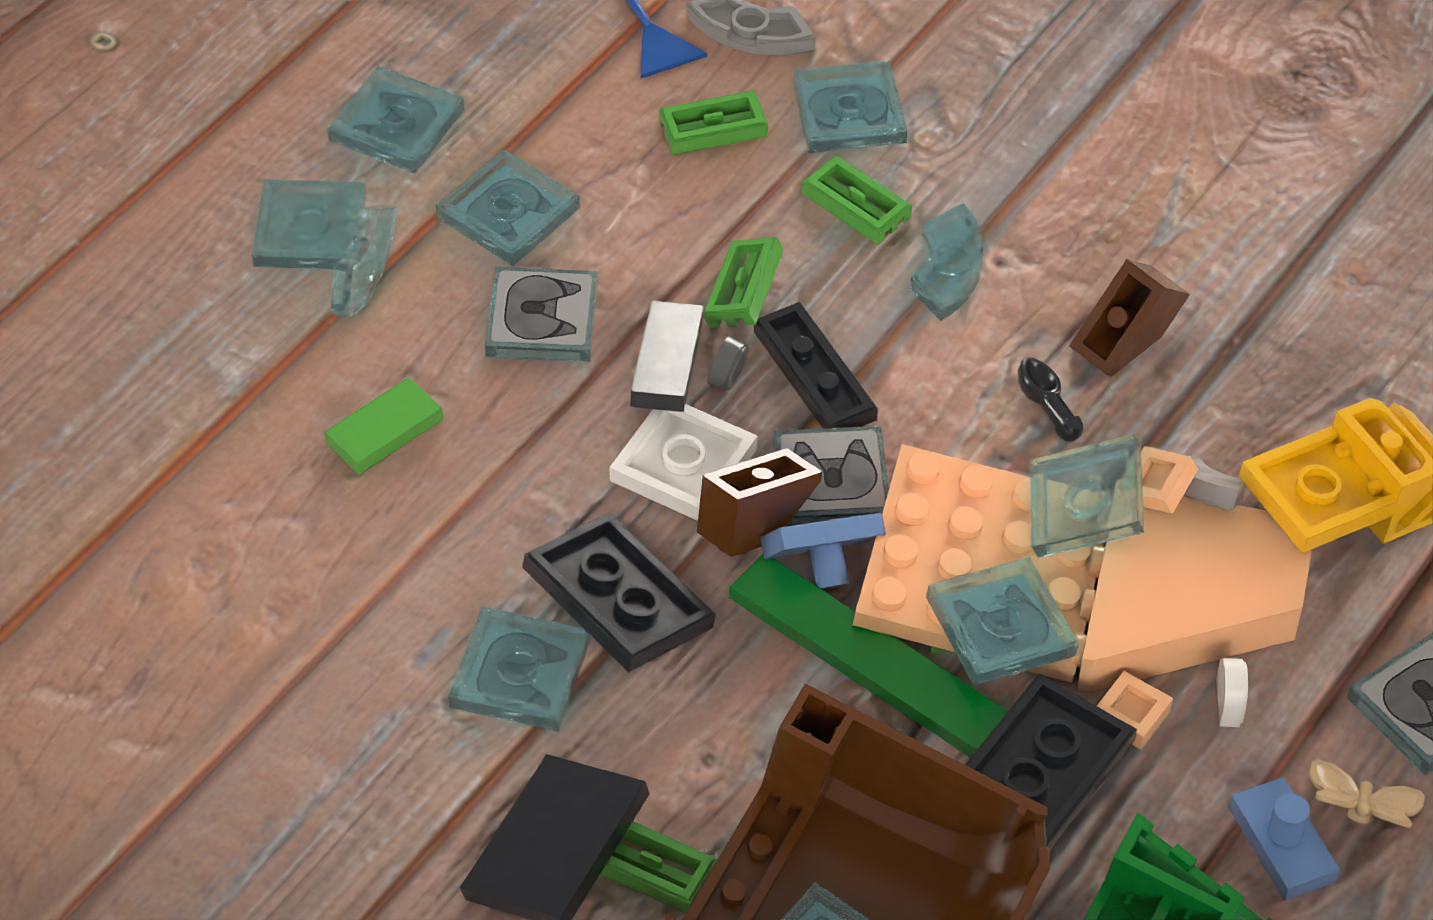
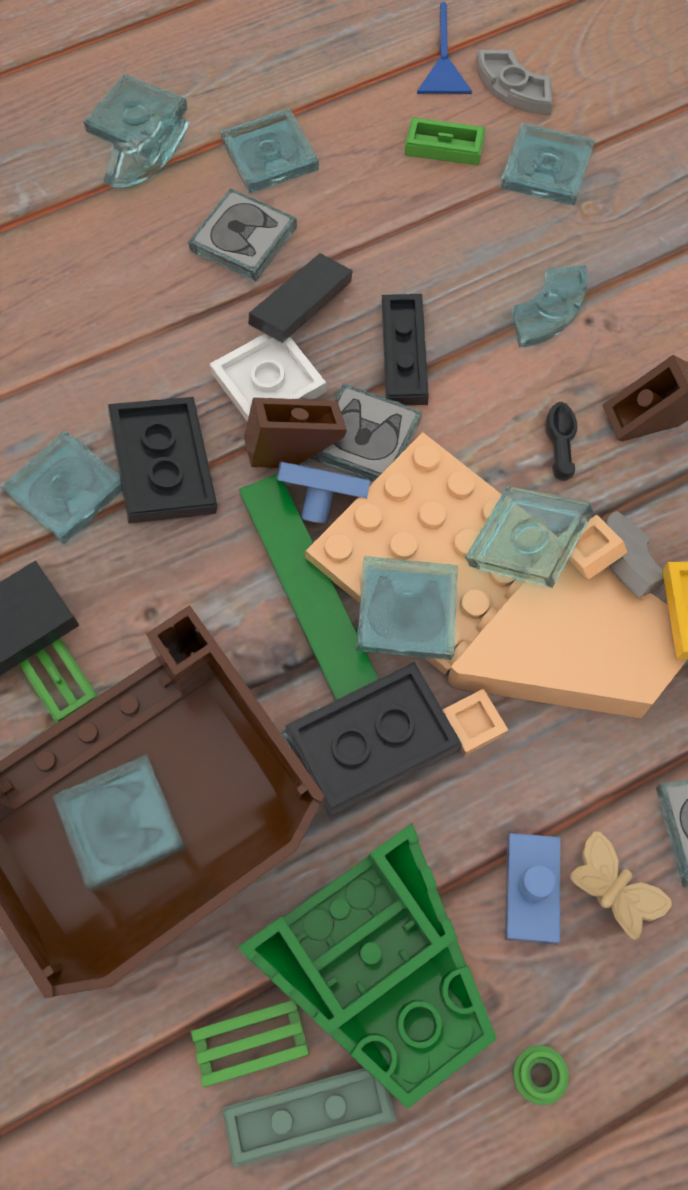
camera: 30 degrees right, 15 degrees up
(383, 425) = (90, 272): bright green tile -> none
(396, 119) = (236, 64): clear light blue tile -> none
(728, 363) = (341, 319): dark grey tile -> none
(751, 281) = (391, 263): bright green tile -> none
(850, 202) = (521, 256): bright green tile -> none
(1232, 691) = (561, 743): white tile -> none

